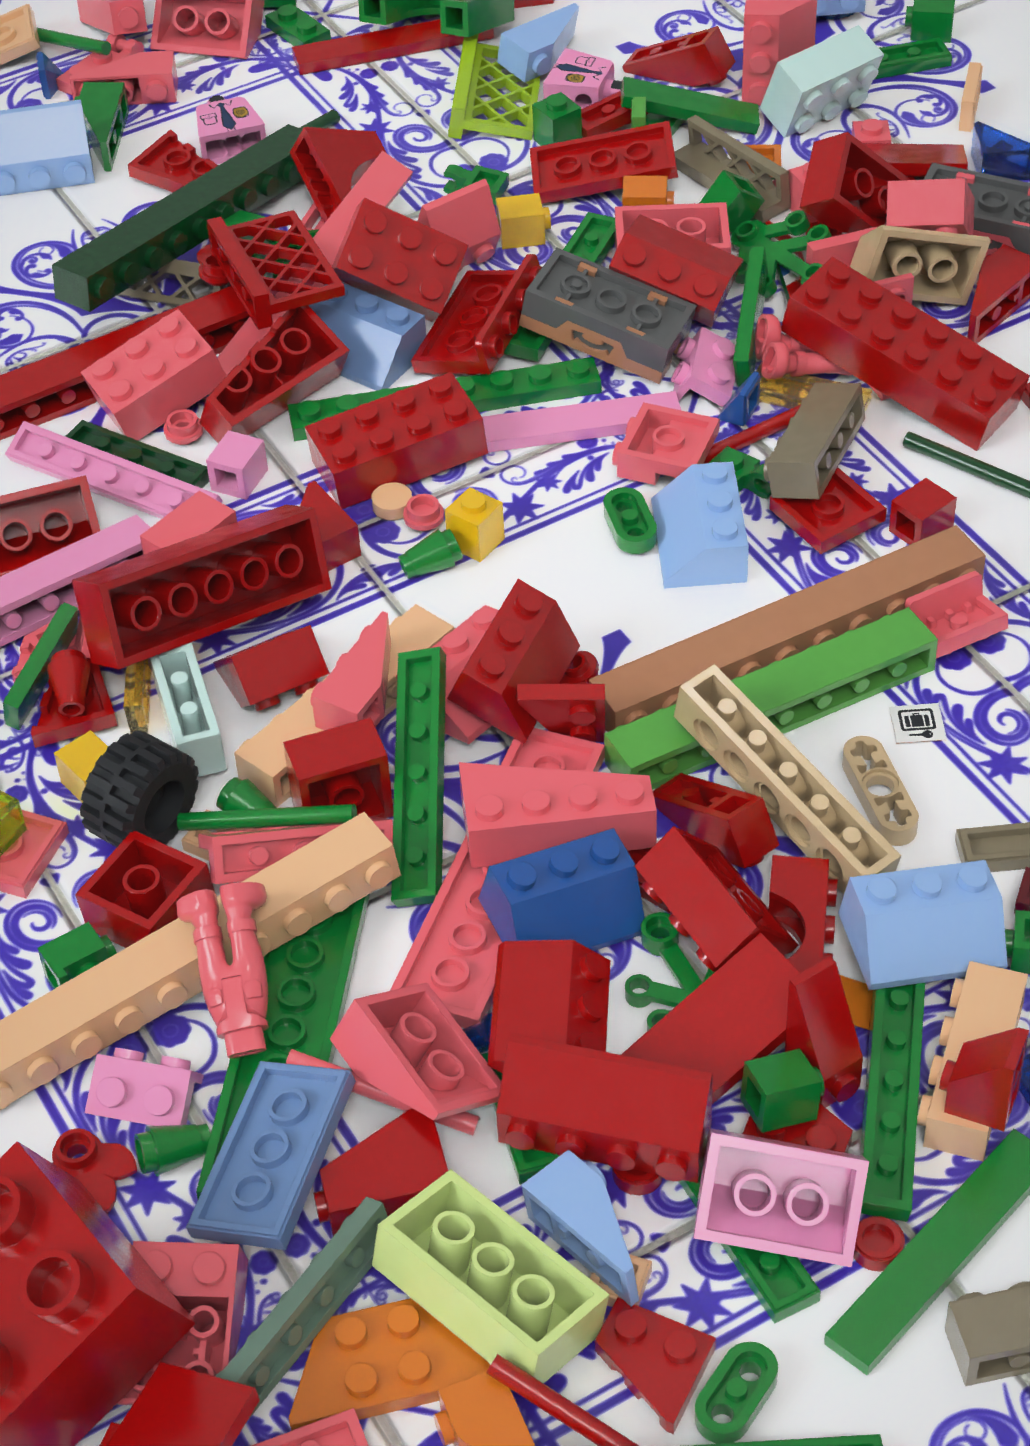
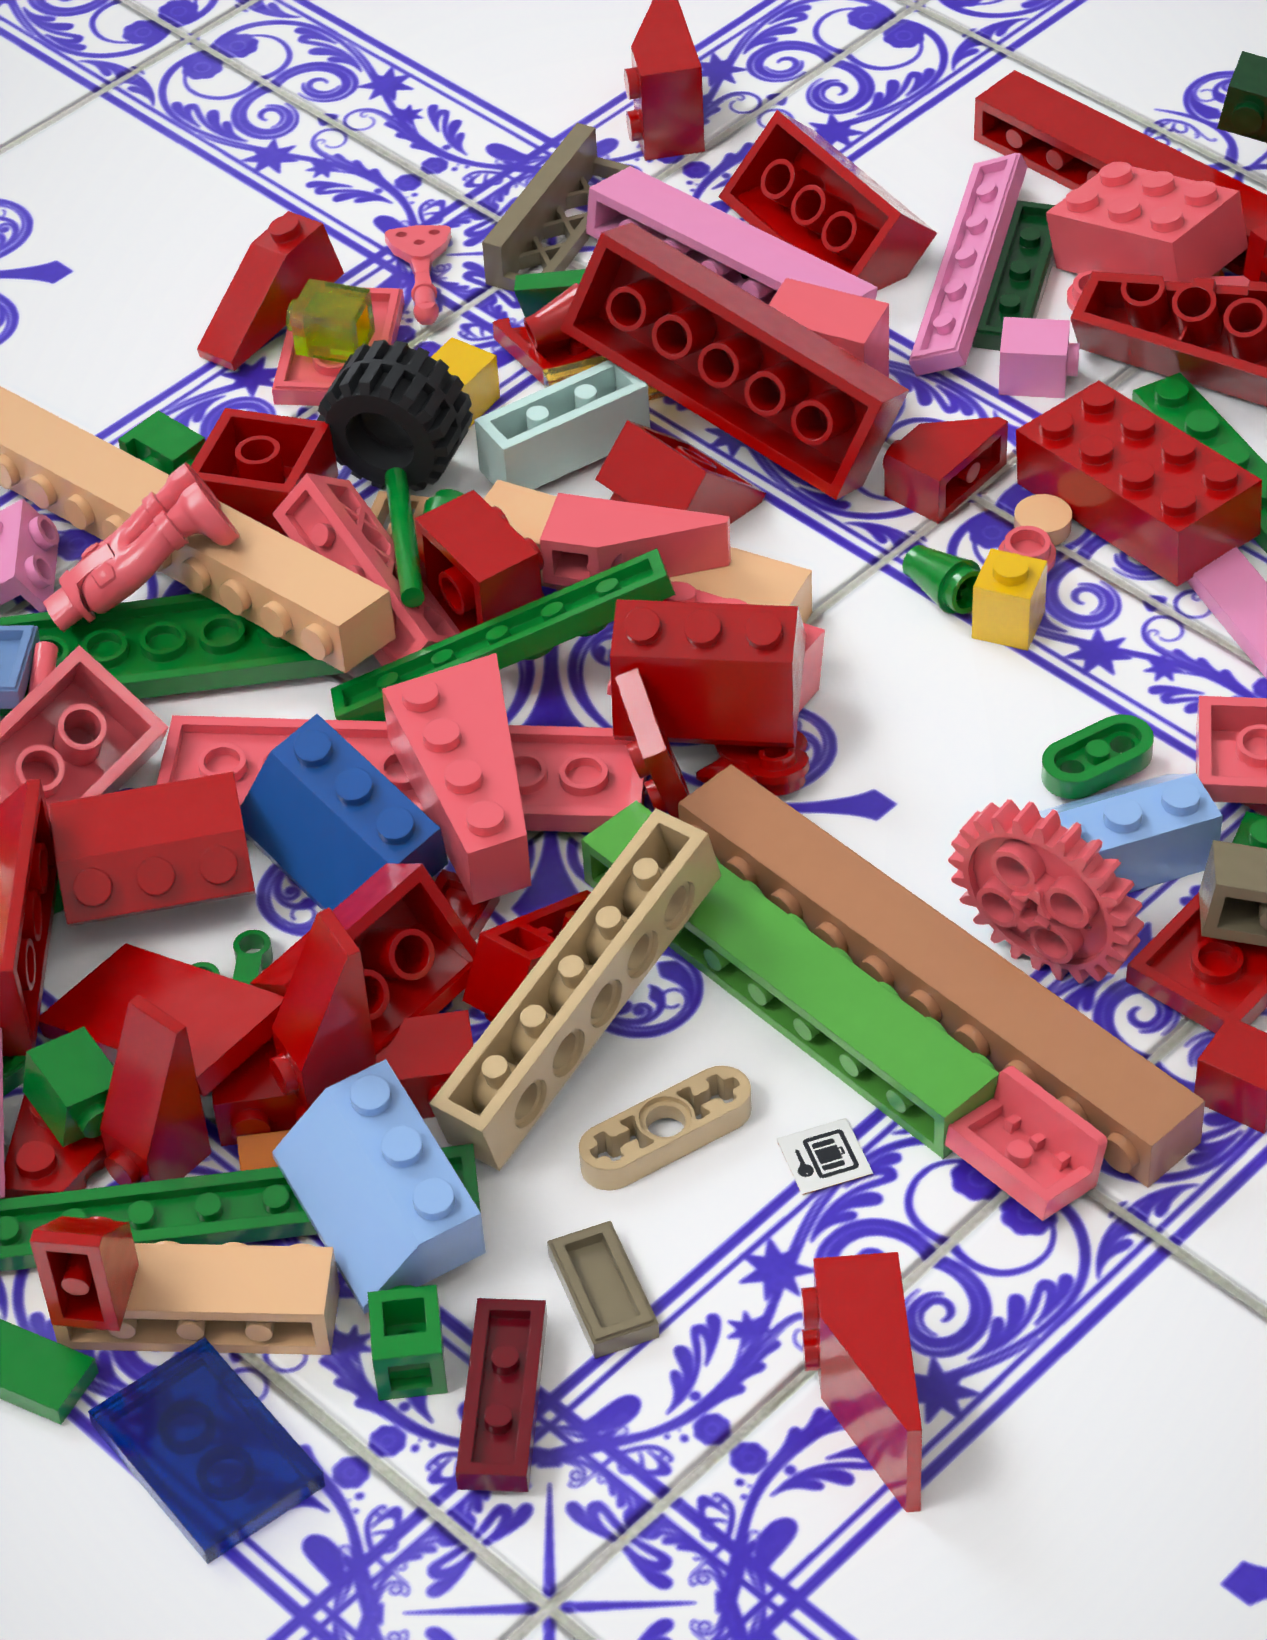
camera: 75 degrees right, 0 degrees up
(783, 542) = (1046, 891): none -> coral gear
(812, 893) = (324, 1016): none -> red slope

